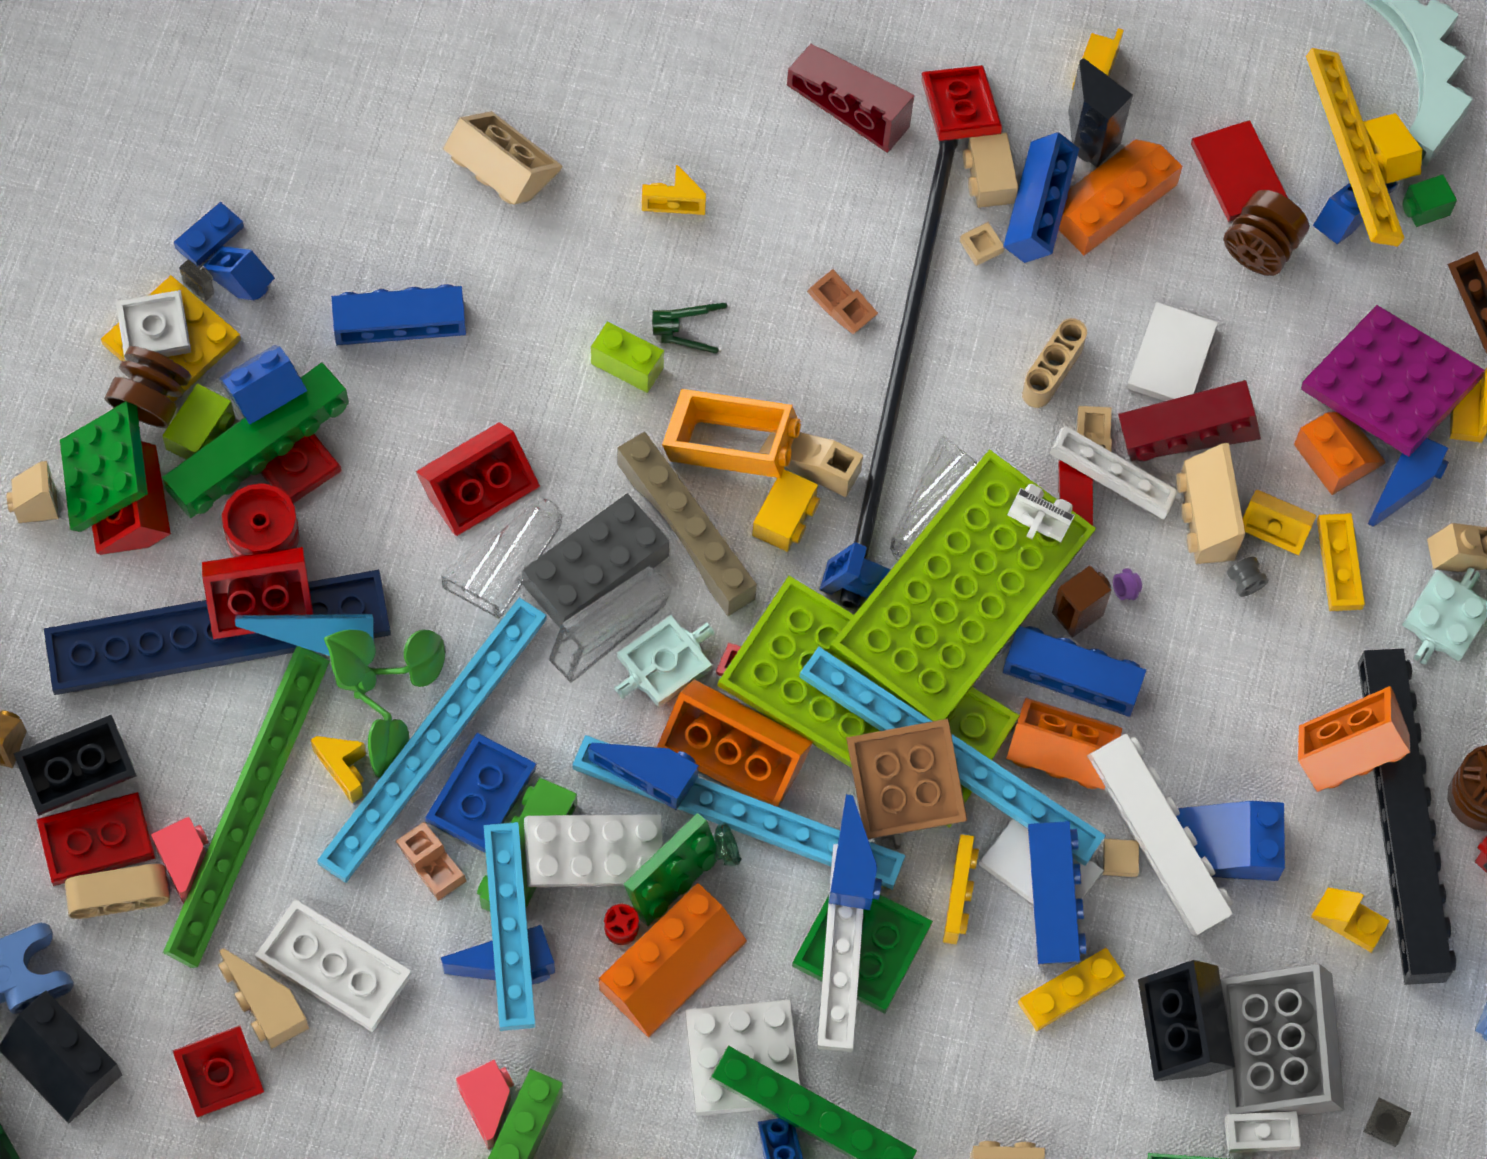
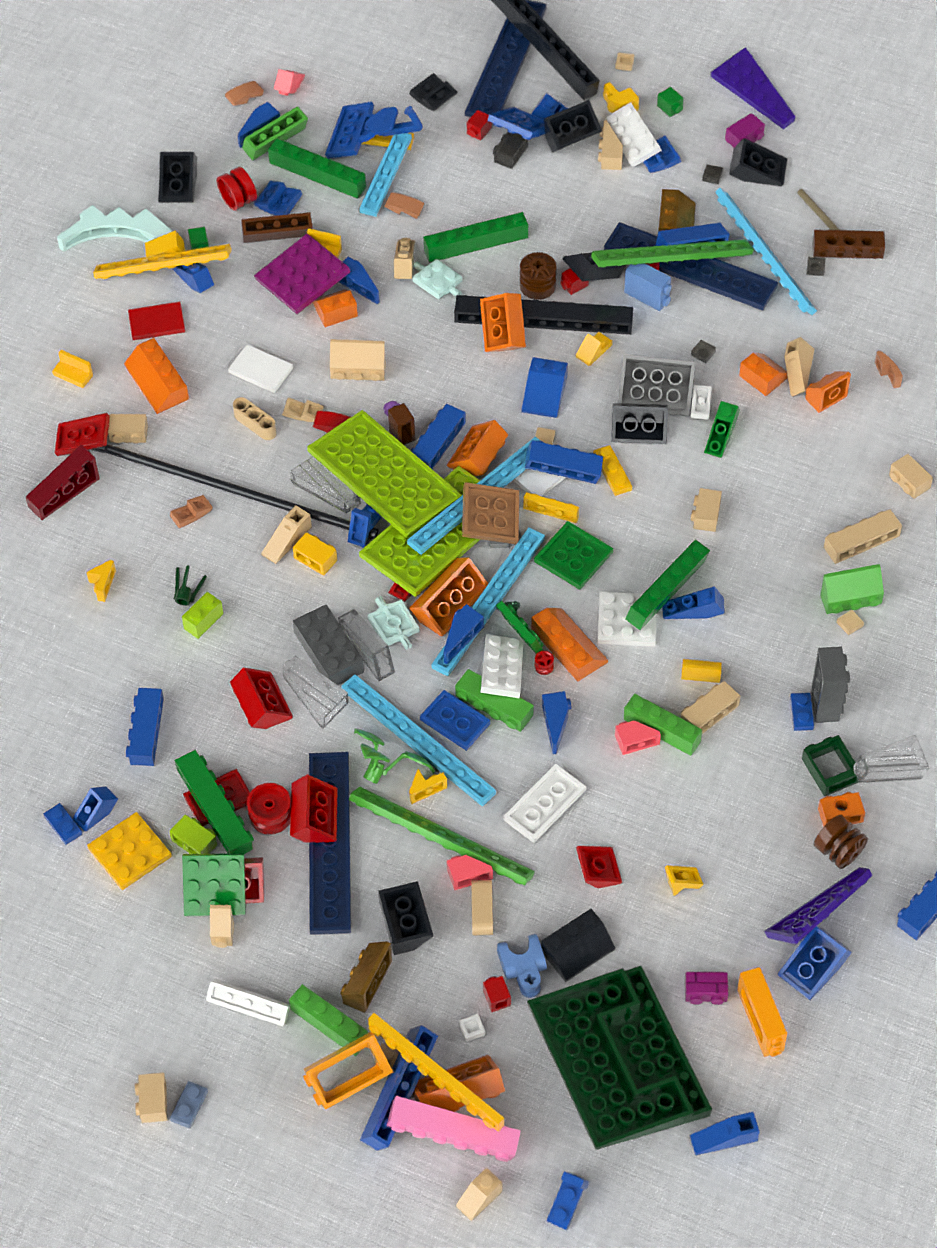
camera: 75 degrees left, 10 degrees down
(95, 838) = (447, 918): red tile -> none
(150, 381) = (168, 850): reddish brown wheel -> none
(154, 323) = (123, 853): white tile -> none
(197, 279) = (95, 829): clear smoke plate -> none
(263, 383) = (177, 793): blue slope -> none
(269, 1001) = (564, 835): tan slope -> none
(305, 630) = (349, 772): dark azure slope -> none
(431, 861) = (492, 750): nougat slope -> none
(501, 157) = (54, 663): tan slope -> none
(509, 927) = (542, 705): medium azure plate -> none
(713, 557) = (342, 587): dark tan arch -> none
(737, 412) = (253, 562): light orange piece -> none
(840, 975) = (577, 558): white plate -> none
(855, 866) = (533, 540): blue slope -> none
(982, 244) = (172, 440): tan plate -> none
(1040, 514) = (354, 426): white hips -> none
(1041, 197) = (154, 405): blue brick -> none
(1097, 113) = (111, 368): black slope -> none
(1113, 472) = (327, 401): white tile -> none
(1160, 834) = (540, 409): white brick -> none
(1191, 423) = (306, 362): dark red wedge -> none
(1247, 576) = (399, 355): dark grey wheel -> none
(1266, 232) = (203, 309): reddish brown wheel -> none
(1277, 522) = (374, 332): yellow panel -> none
(1340, 562) = (398, 316): yellow plate -> none

